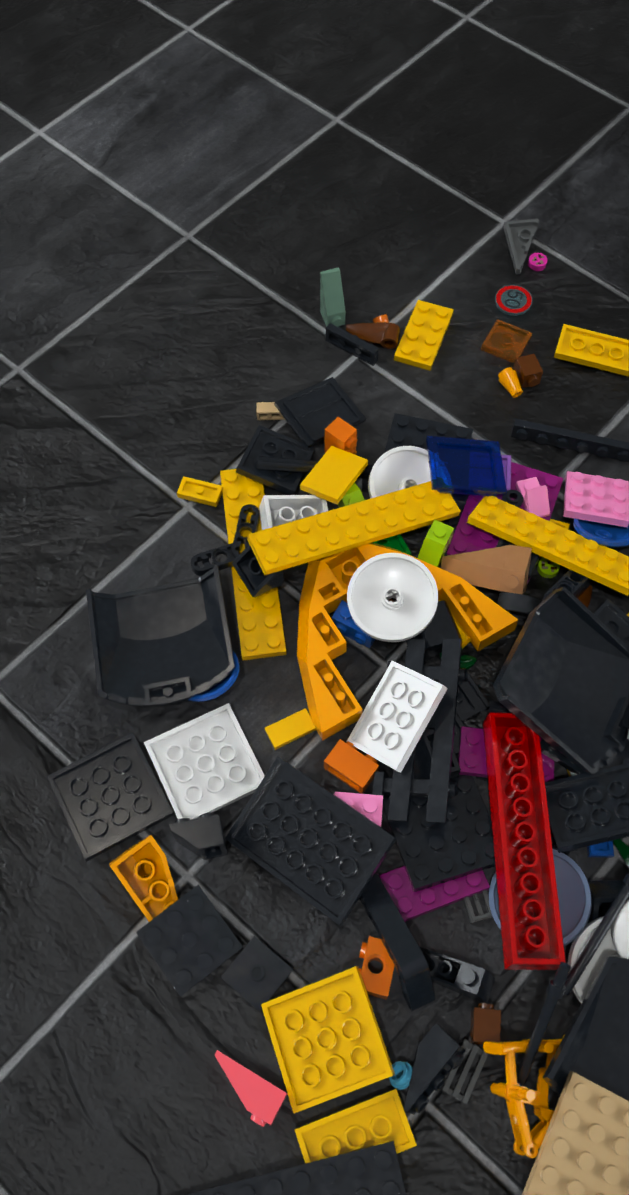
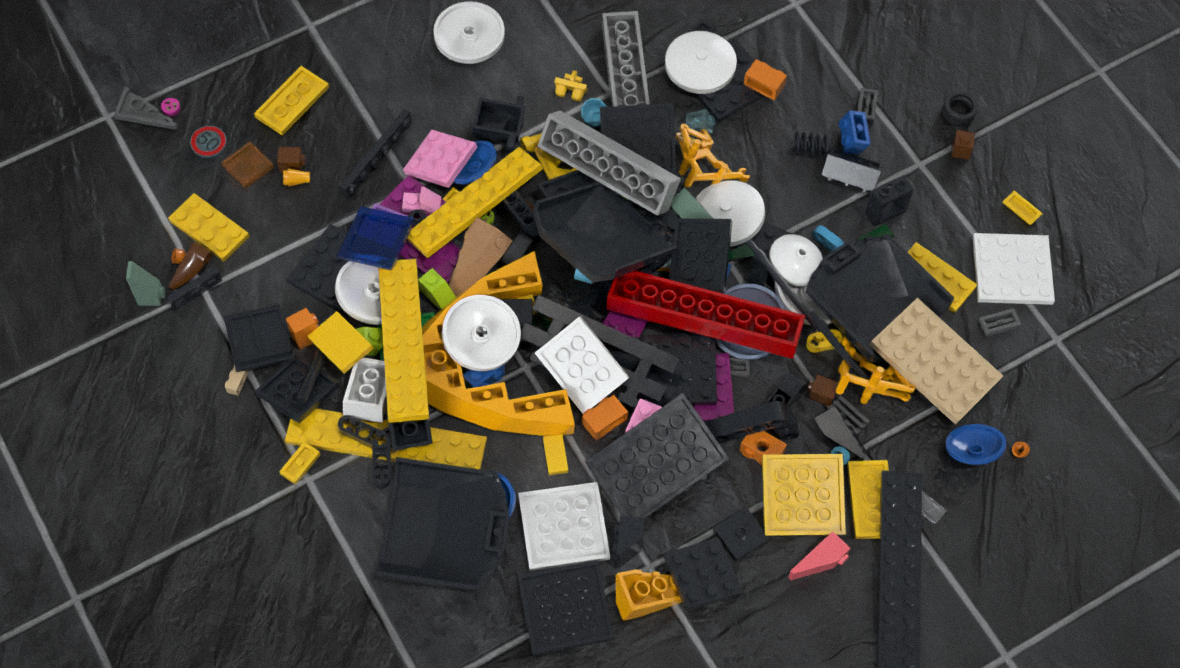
camera: 75 degrees left, 0 degrees up
(564, 1004) = (823, 344): none -> yellow beam

